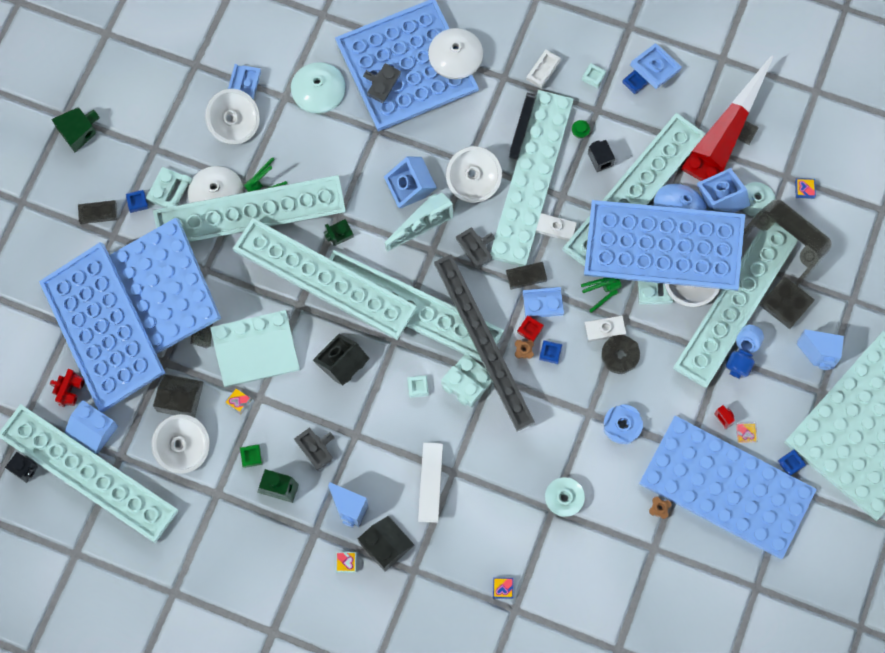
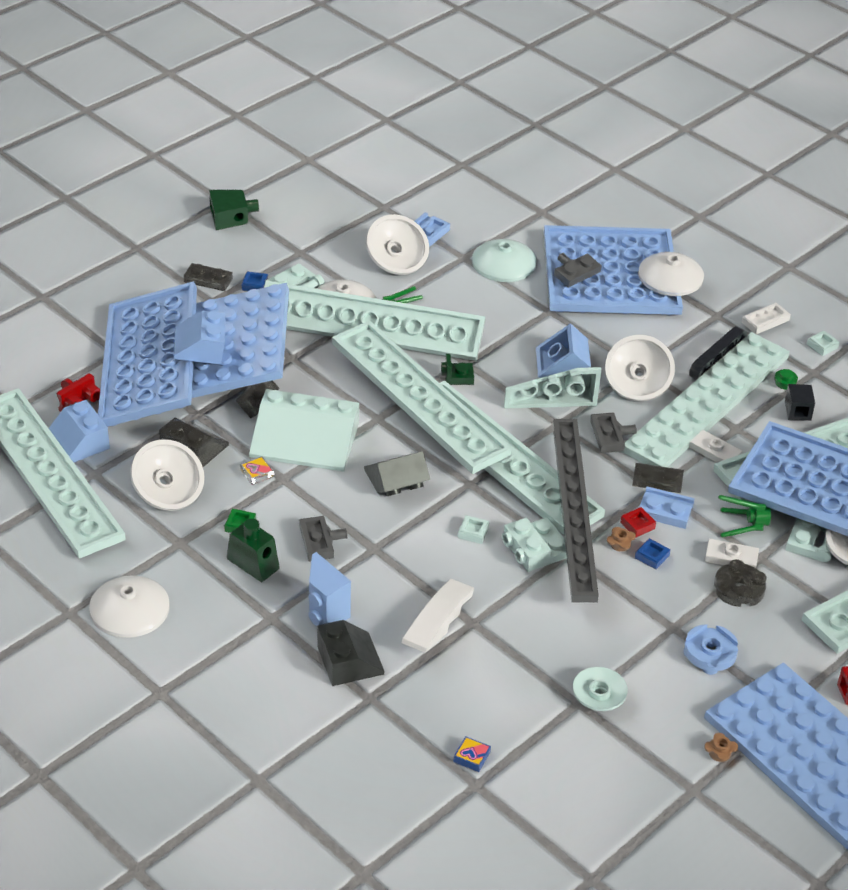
camera: 20 degrees right, 30 degrees down
(141, 309) = (201, 338): none -> light blue slope
(220, 579) = (129, 606): none -> white dish
(345, 562) = (290, 656): tile -> none

